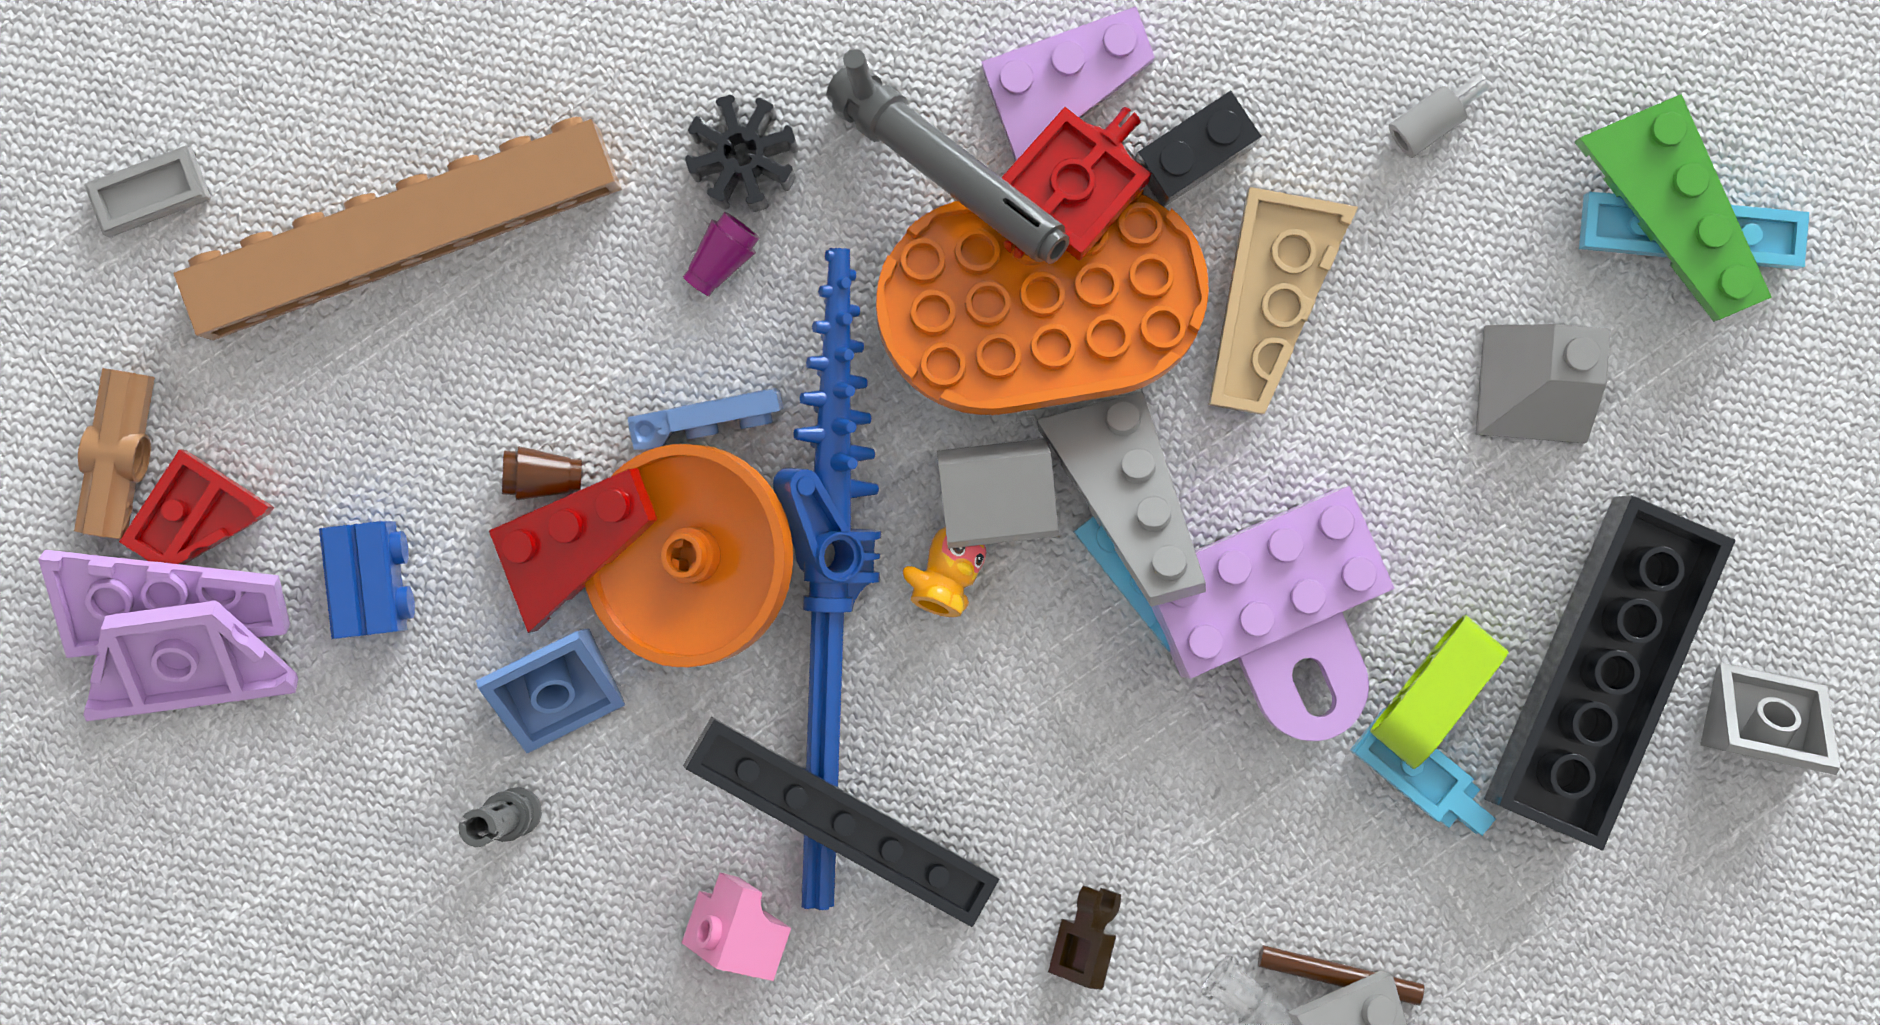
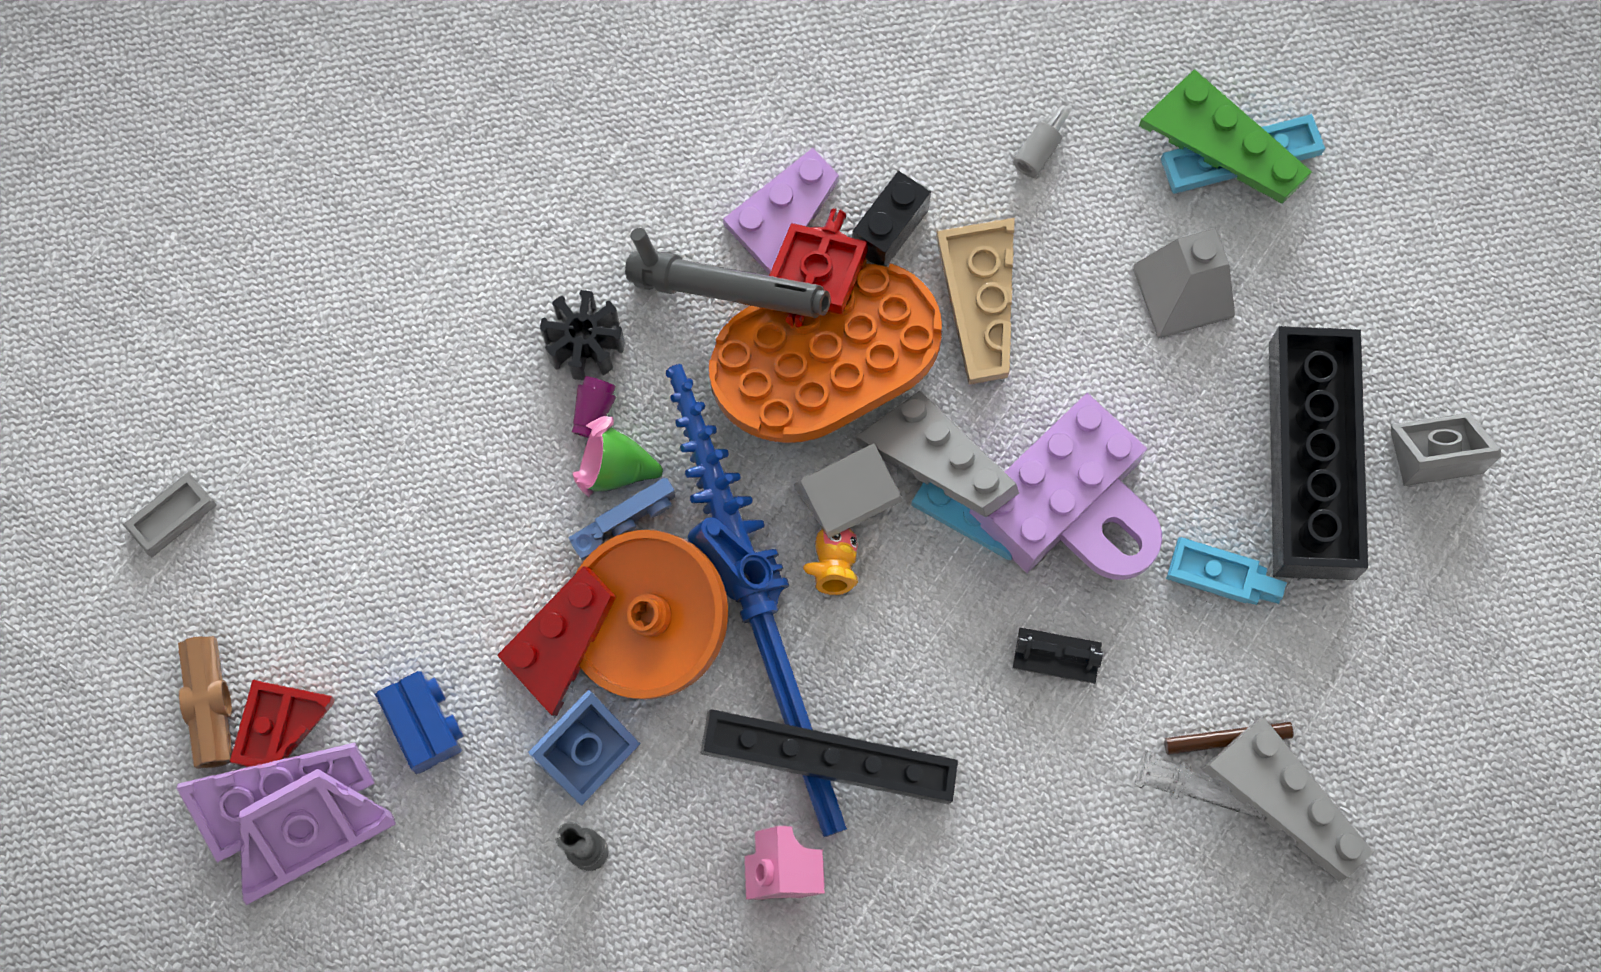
camera: 25 degrees left, 15 degrees down
(397, 229) = (358, 473): medium nougat brick -> none
(539, 474) = (518, 602): reddish brown cone -> none
(719, 338) = (613, 460): none -> bright green hat
(1082, 945) = (1039, 783): dark brown plate -> none
(1175, 794) = (1057, 655): none -> black hinge
(1439, 691) = (1209, 509): lime beam -> none

